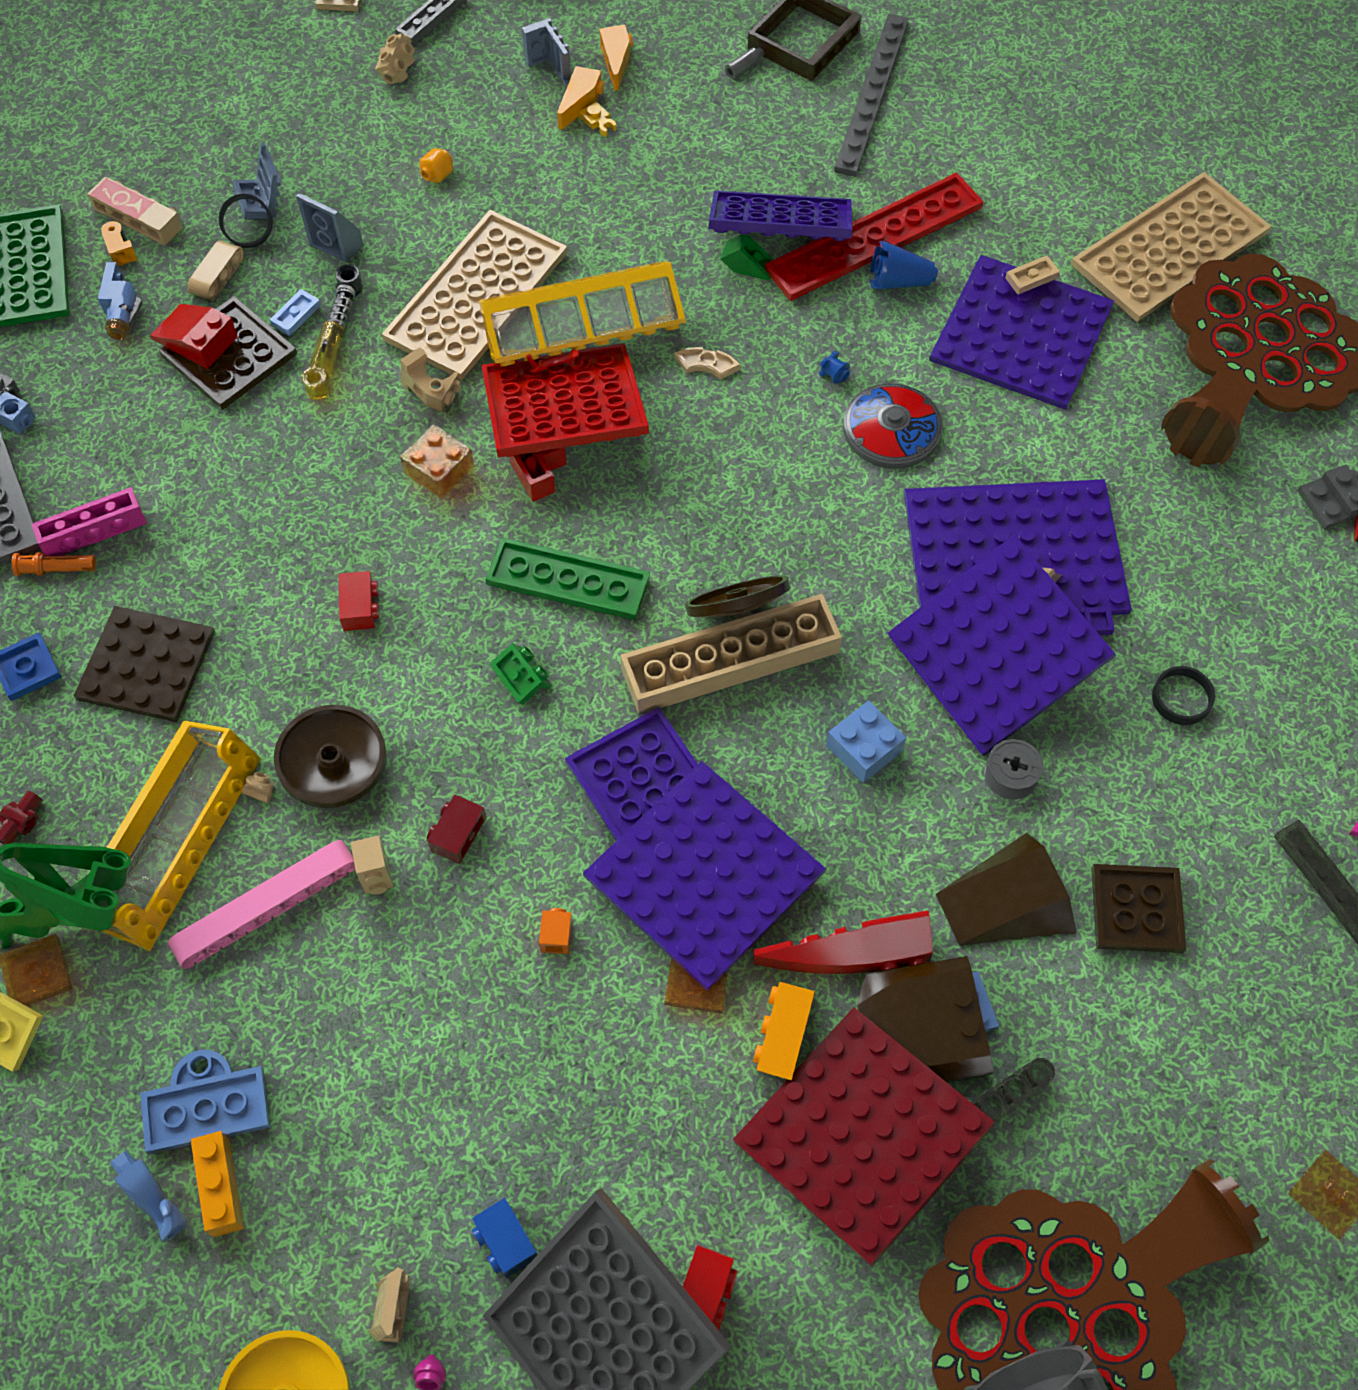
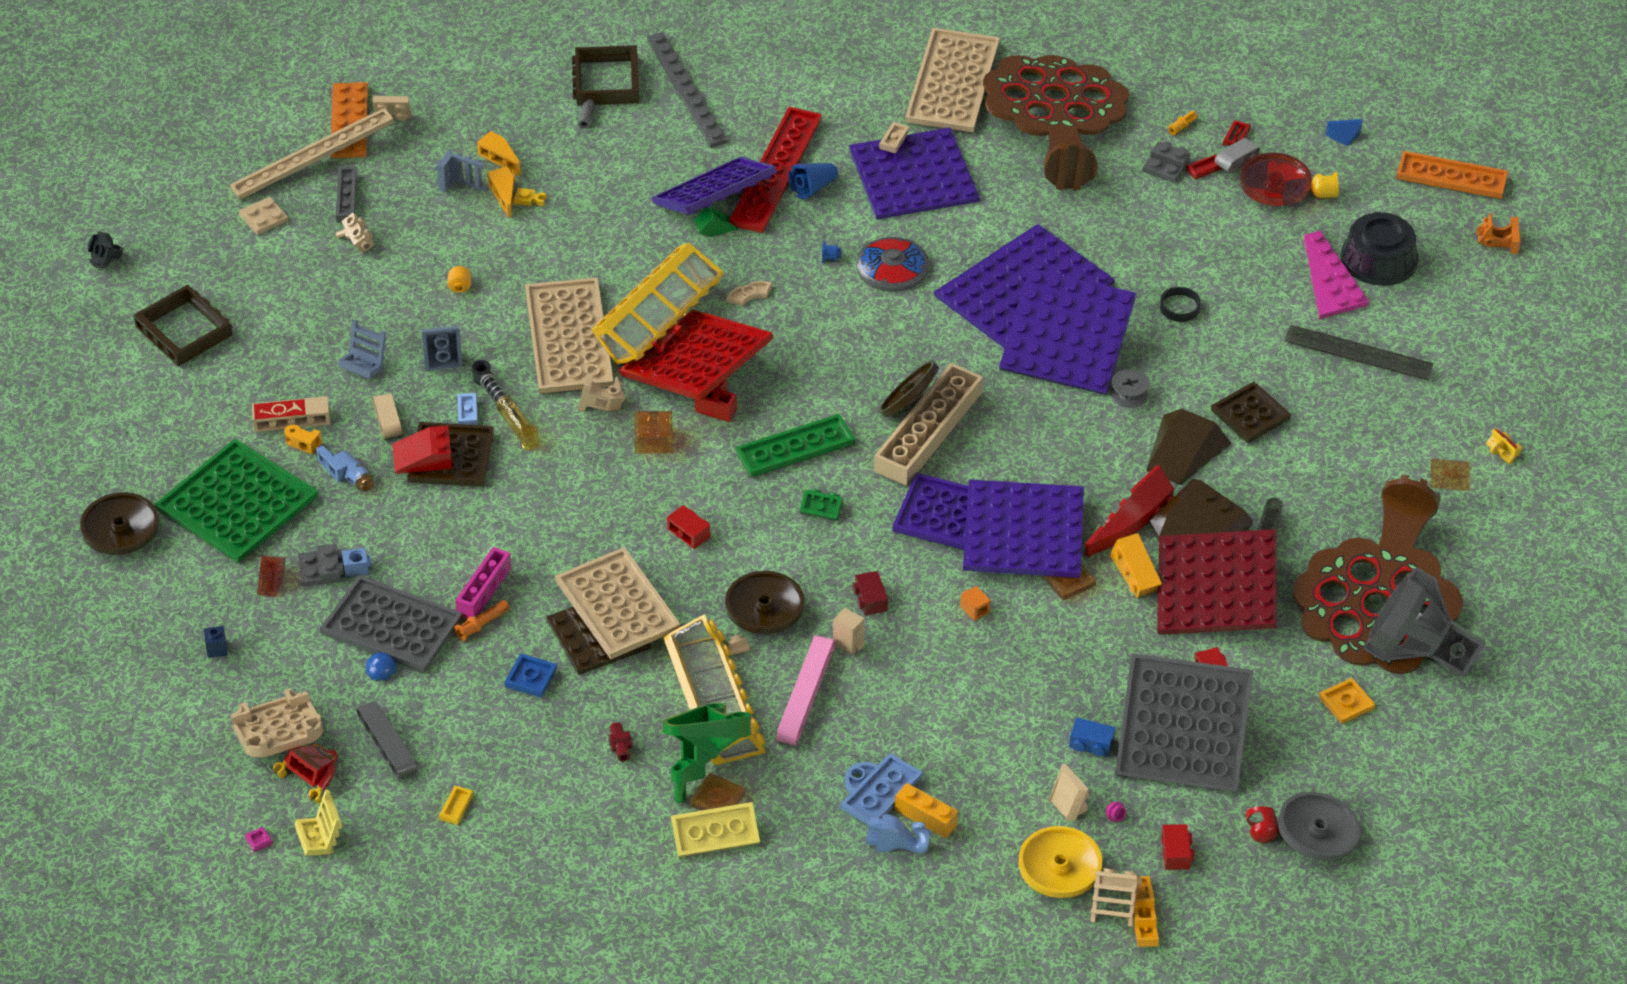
camera: 40 degrees left, 15 degrees down
(147, 31) = (145, 317): none -> dark brown window
(182, 645) = (617, 602): none -> tan plate
(227, 203) = (385, 361): black tyre -> none
(865, 741) = (1042, 421): medium blue brick -> none

